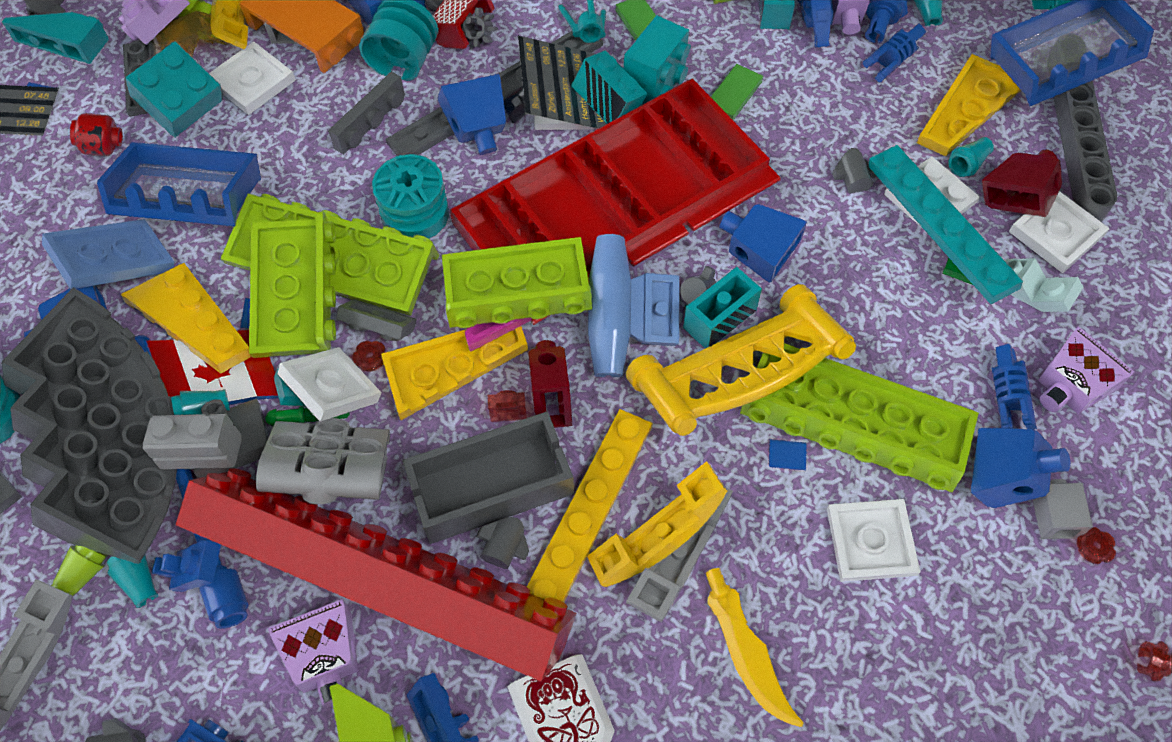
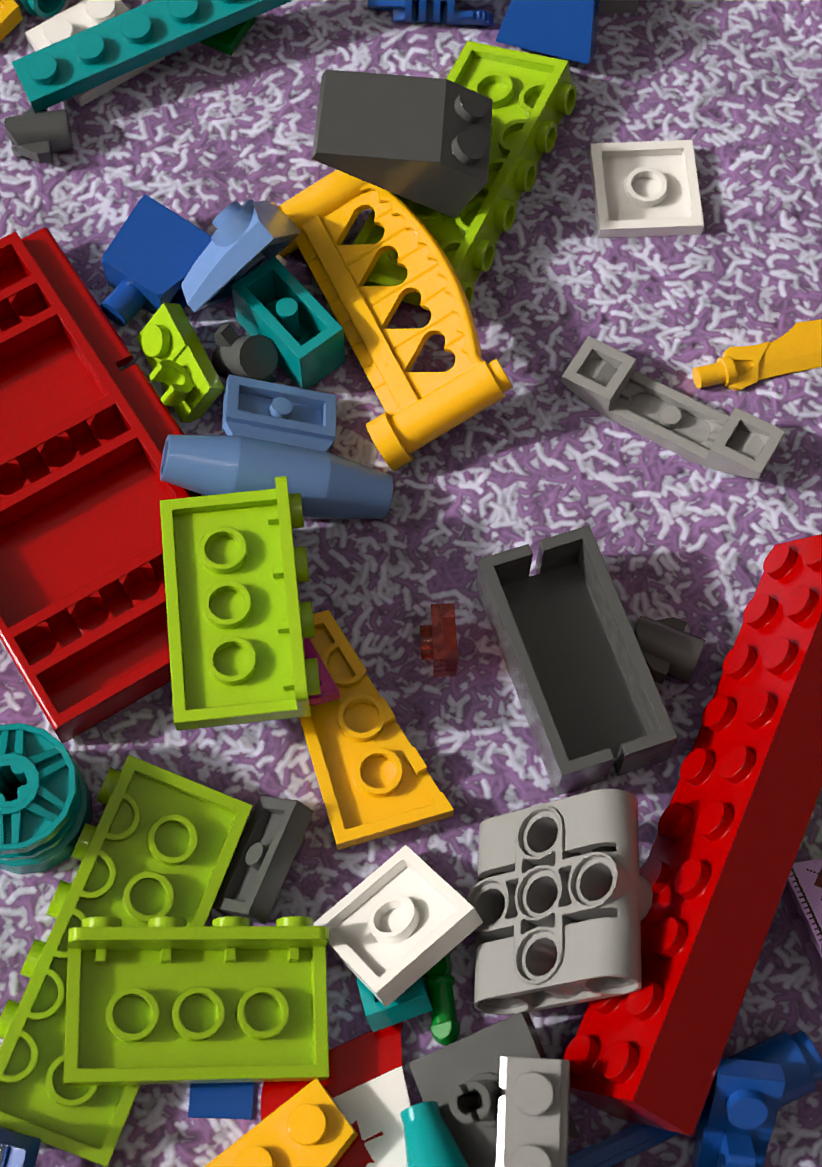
camera: 90 degrees left, 5 degrees up
(369, 363) = (335, 886): clear red plate -> none
(547, 375) = (408, 569): dark red torso -> none
(589, 507) = (624, 539): yellow plate -> none
(663, 533) = (653, 425): yellow slope -> none
(686, 258) = (179, 363): none -> lime plate
(764, 266) = (241, 243): none -> medium blue slope
(787, 454) = (517, 275): blue piece -> none
(860, 350) = (406, 135): none -> dark grey slope

